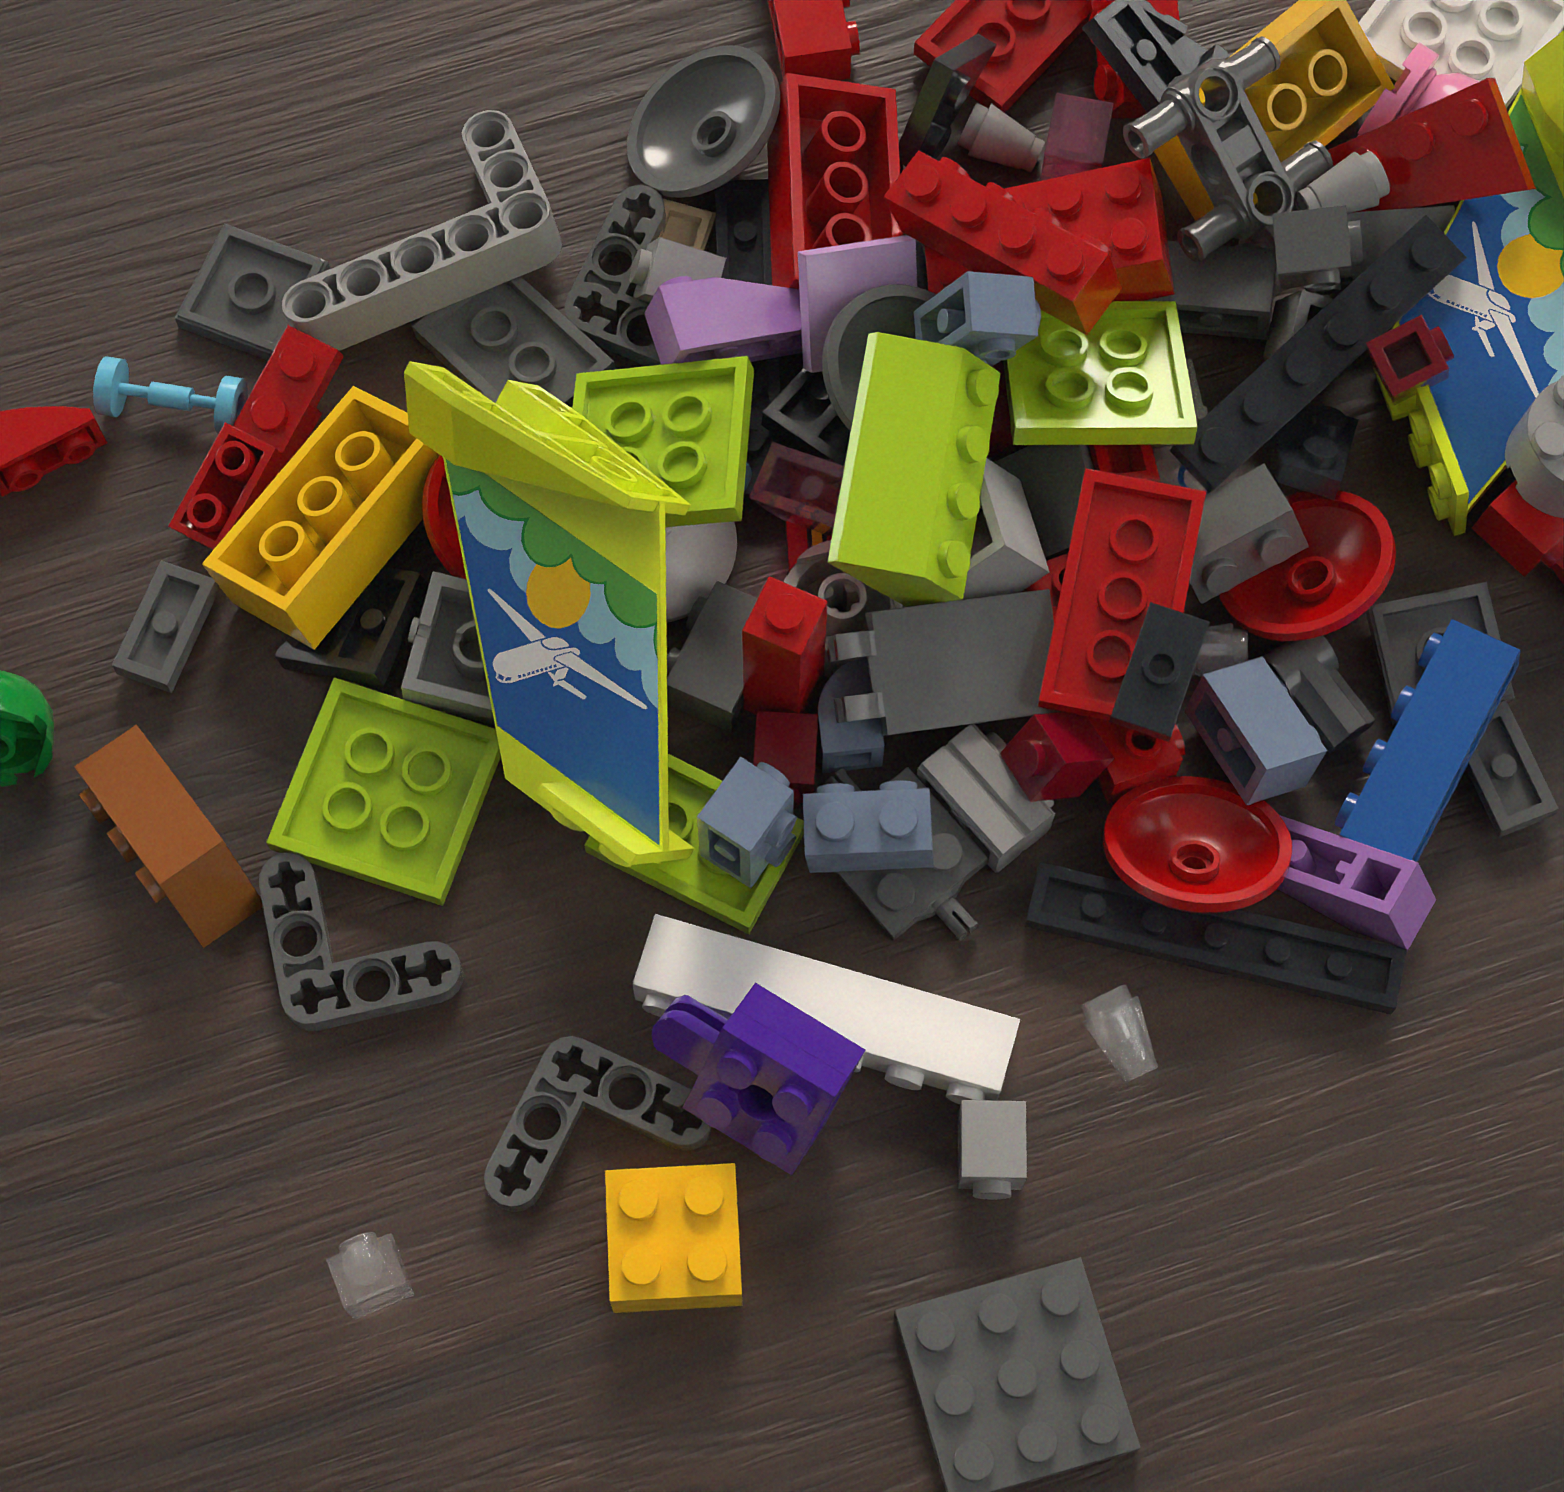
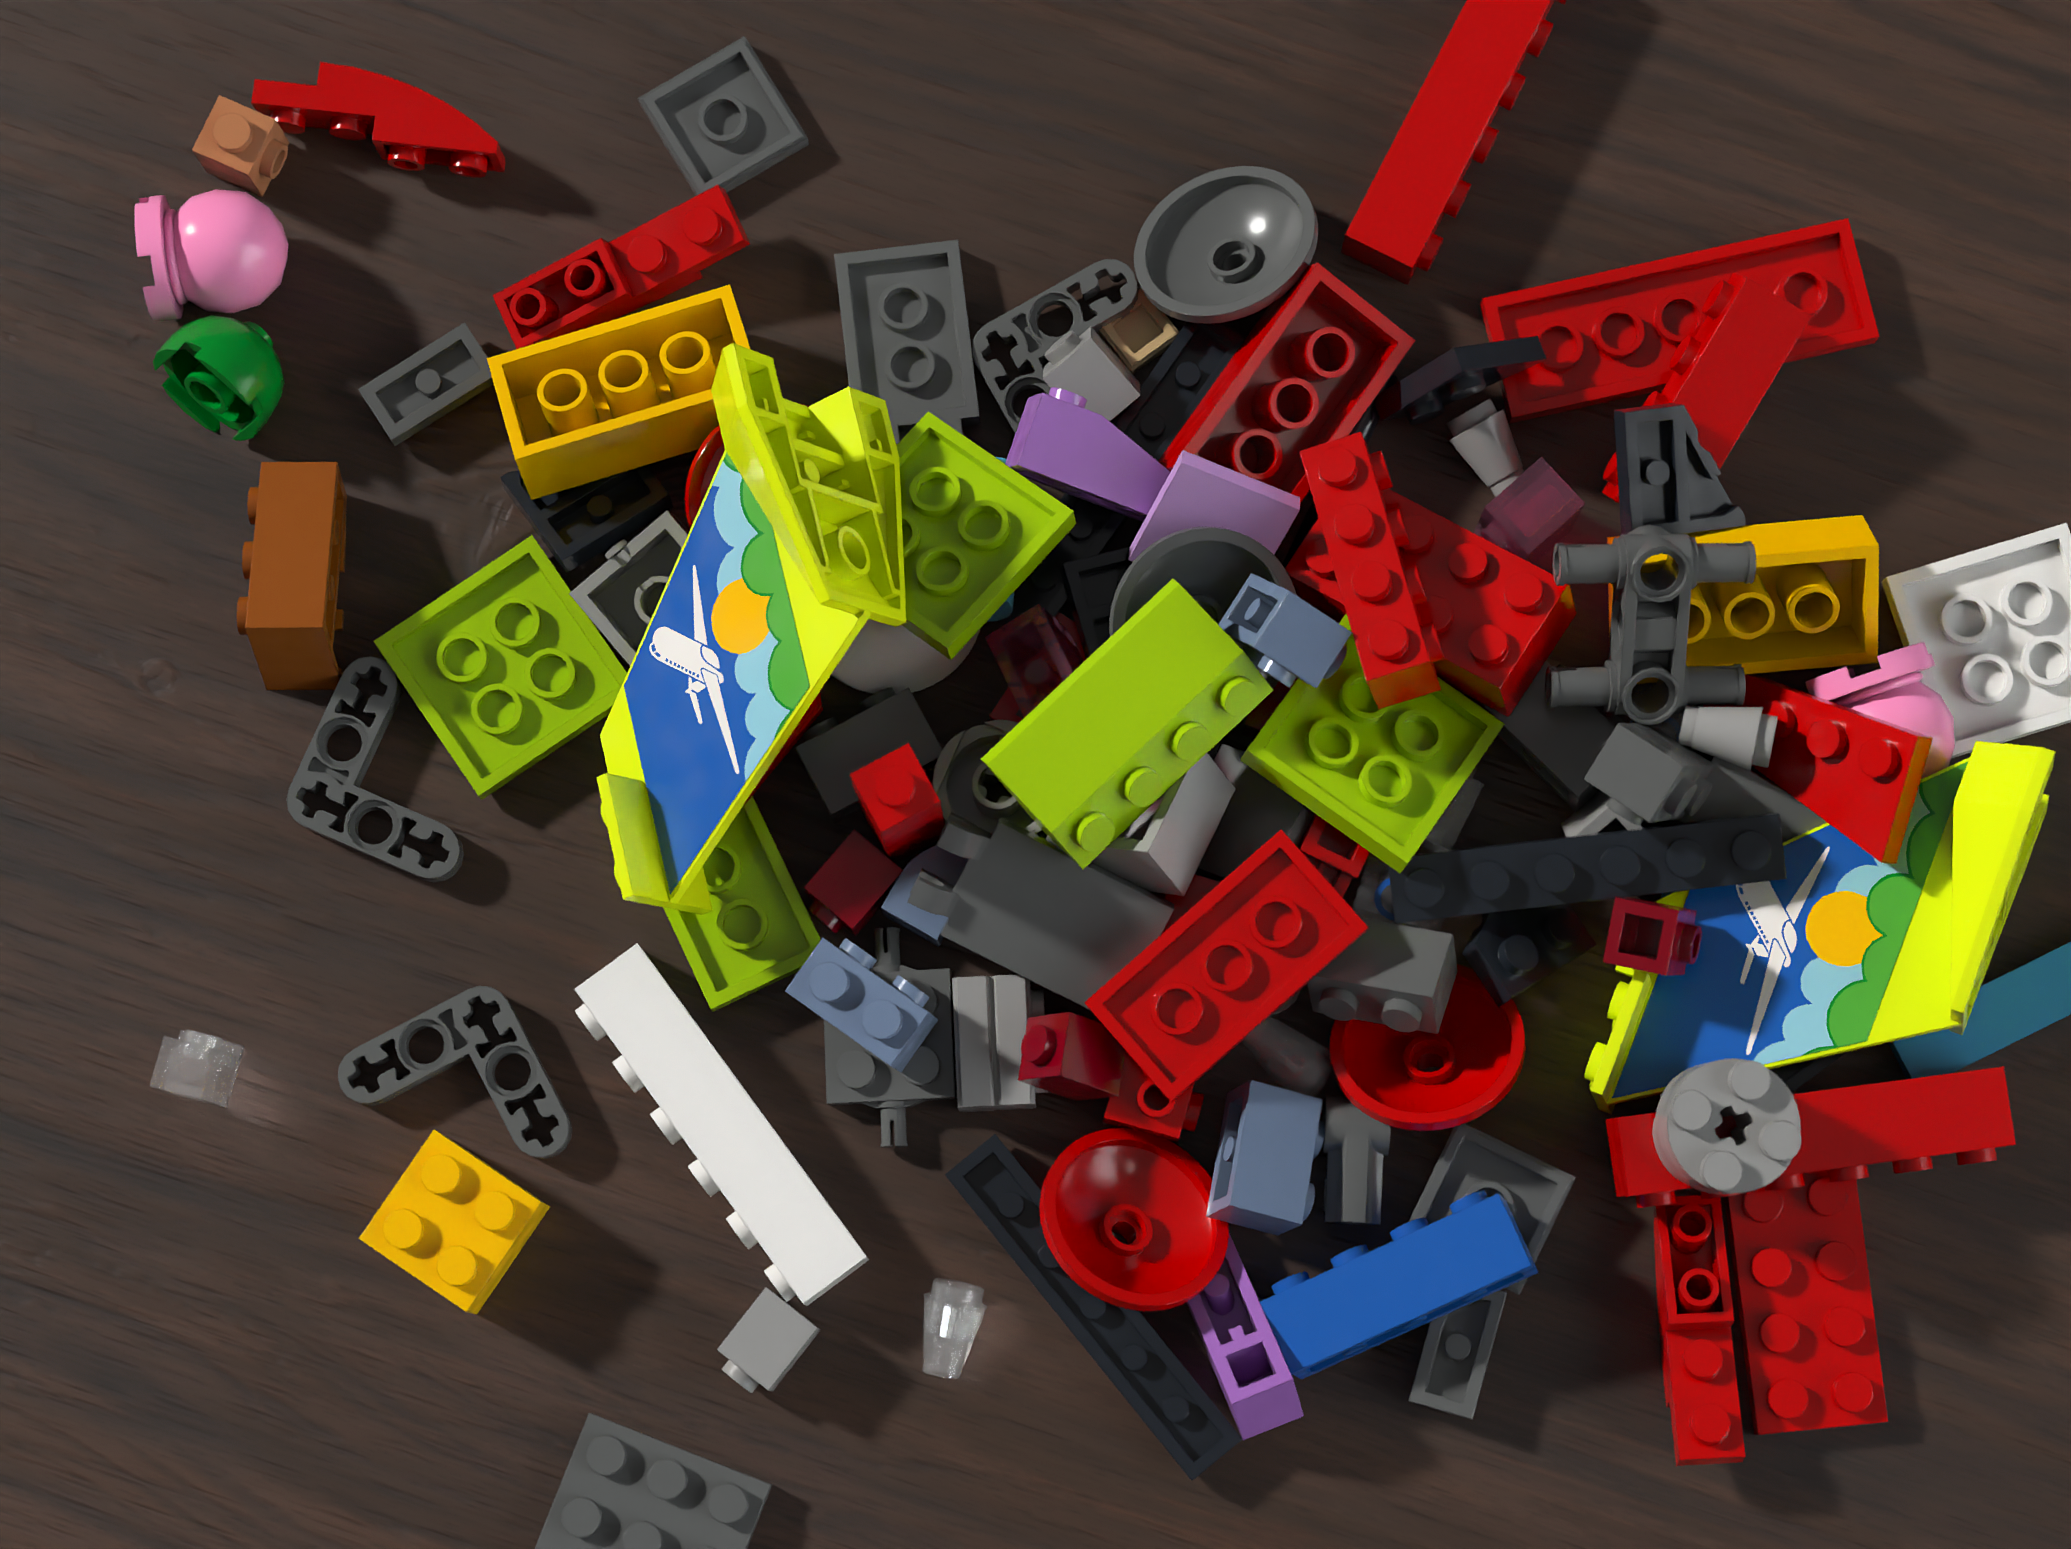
camera: 40 degrees right, 10 degrees up
(113, 386) = (538, 128): medium azure wheel -> none
(443, 262) = (908, 205): light grey beam -> none
(748, 821) = (763, 926): sand blue brick -> none
(762, 1073) = (617, 1141): dark purple brick -> none
(1159, 672) = (1199, 1056): black plate -> none

